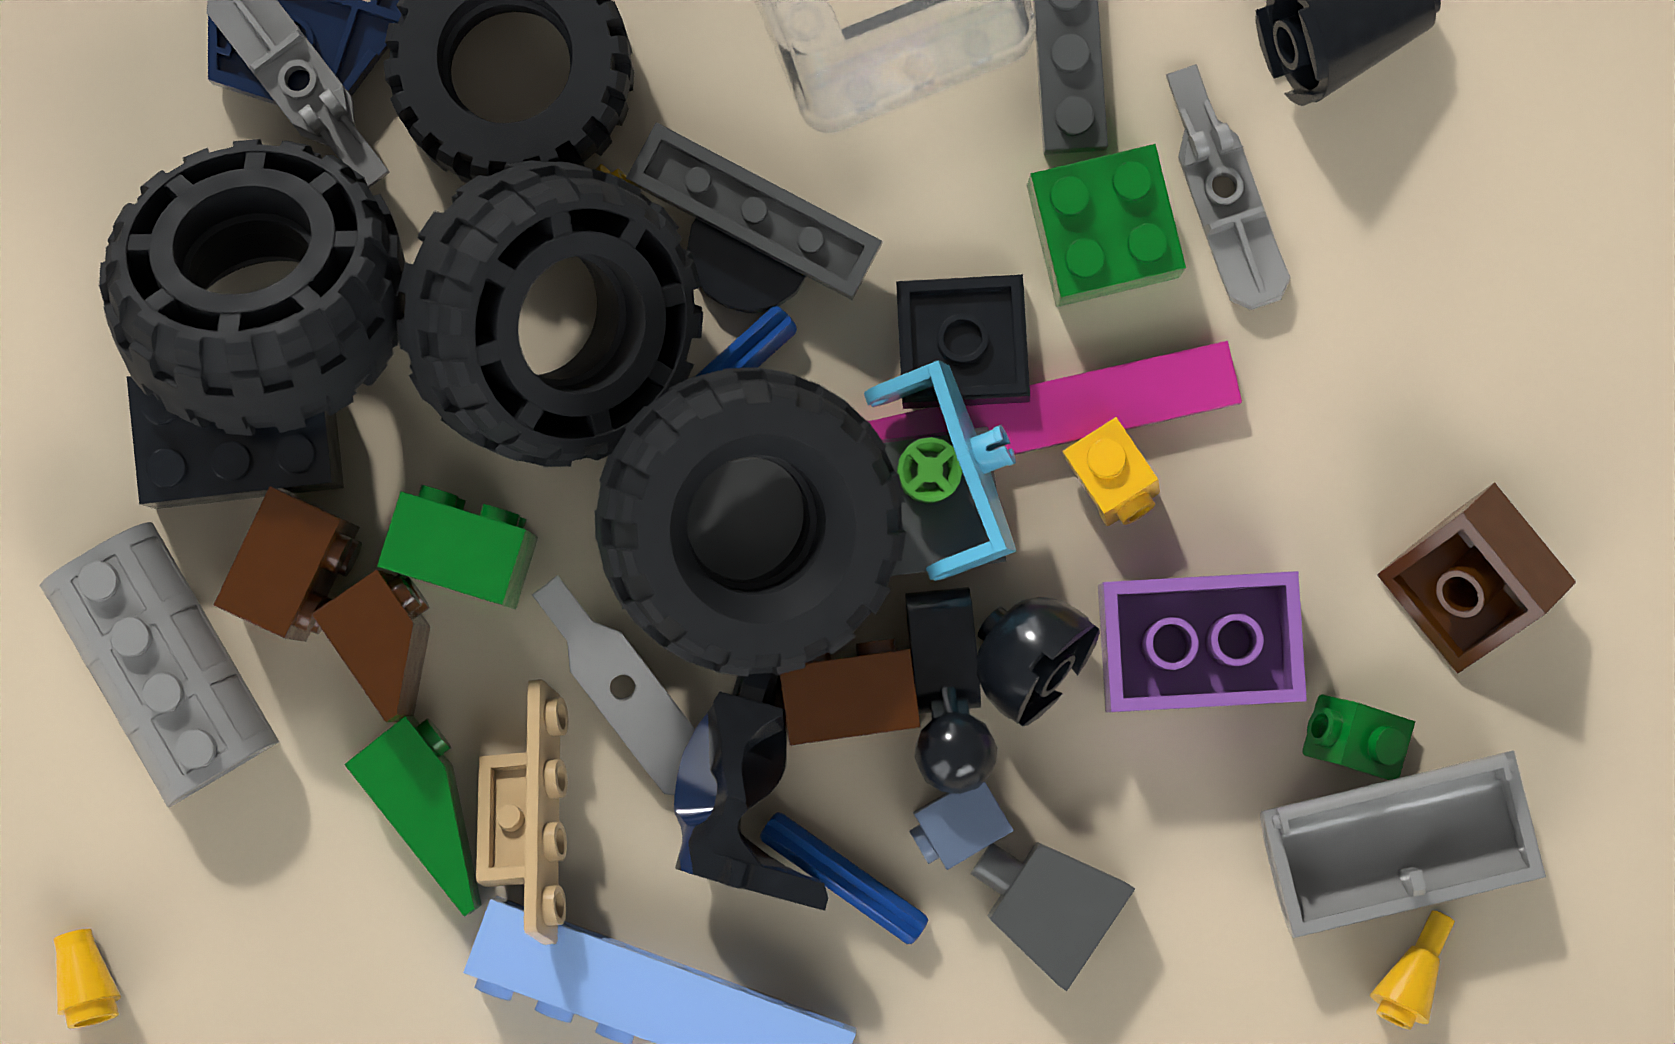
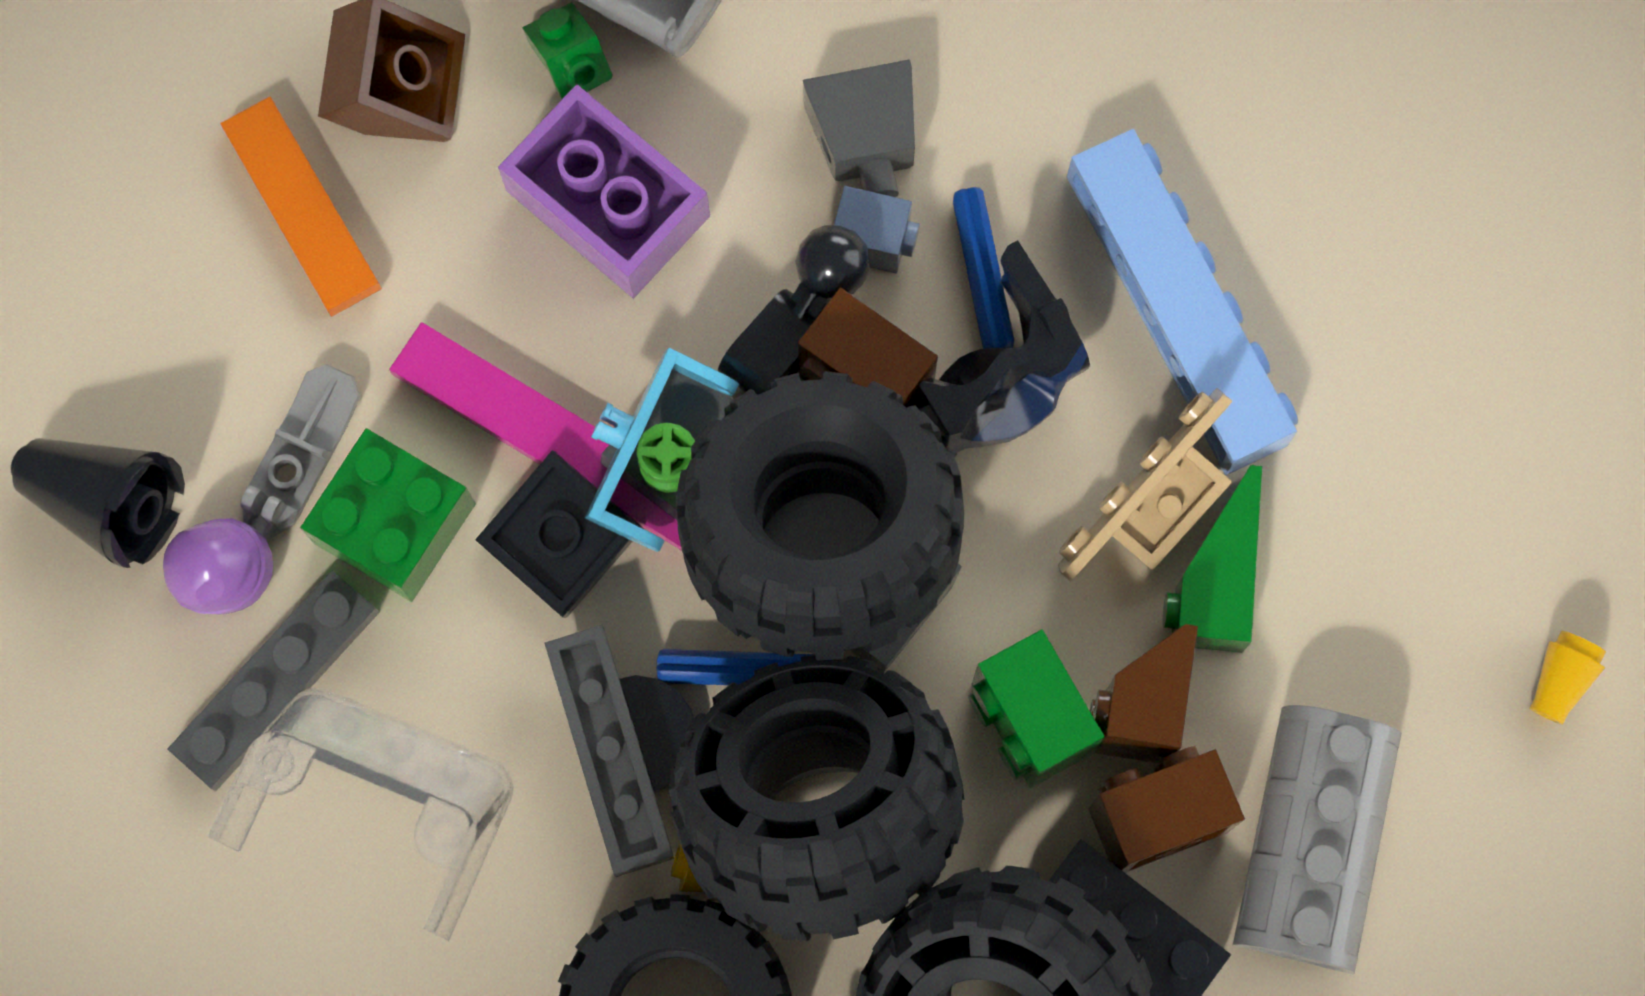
camera: 140 degrees left, 10 degrees down
(644, 720) = (1011, 490): light grey piece -> none
(1030, 655) = (720, 288): black cylinder -> none
(1114, 473) = (549, 352): yellow bracket -> none
(1197, 64) = (218, 566): none -> medium lavender hat
(1437, 403) = (301, 206): none -> orange tile

